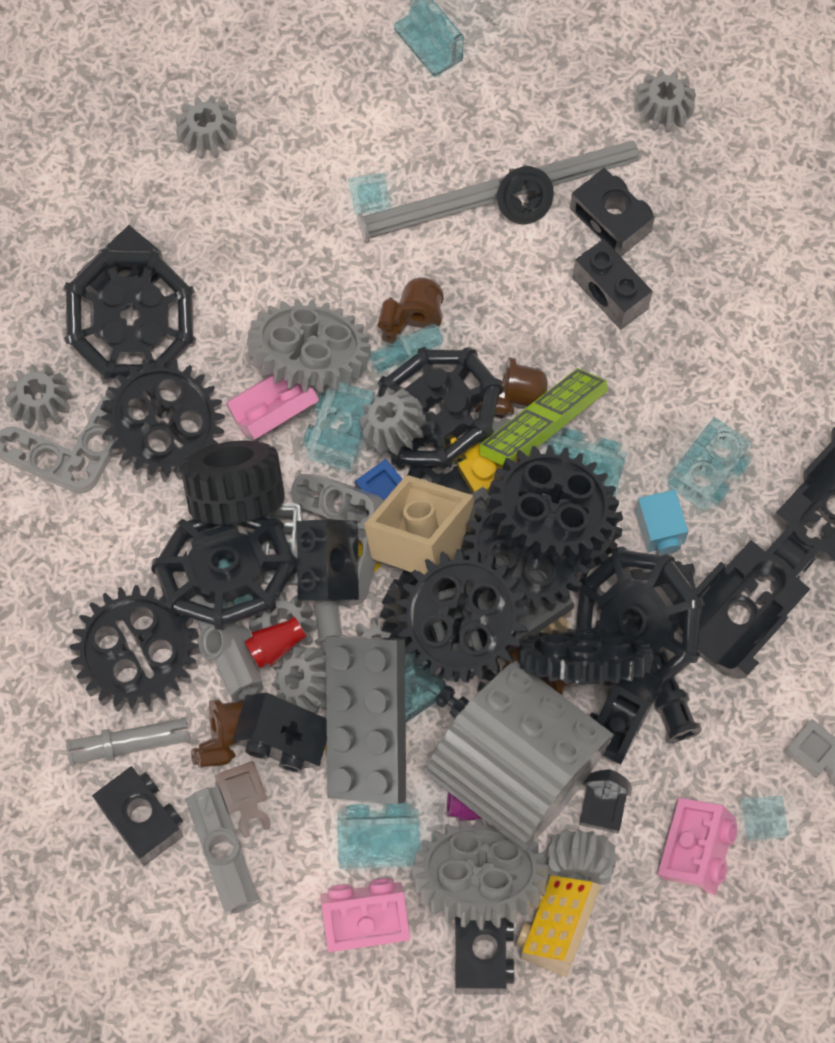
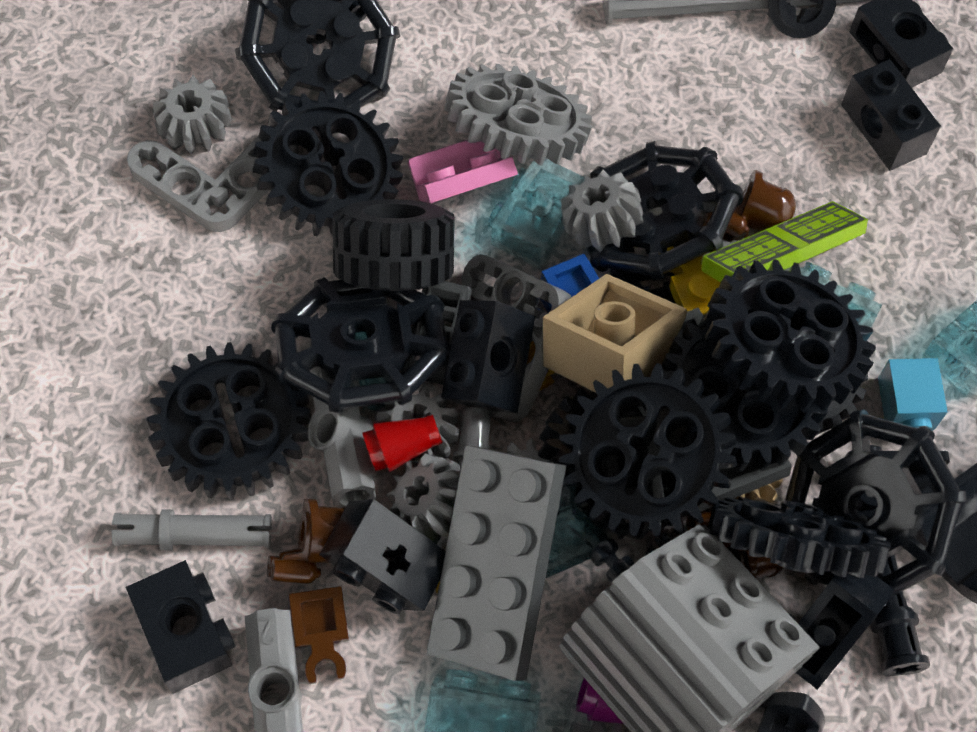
camera: 10 degrees right, 5 degrees down
(405, 347) = (630, 140): clear light blue axle -> none
(417, 307) = (654, 100): reddish brown piece -> none

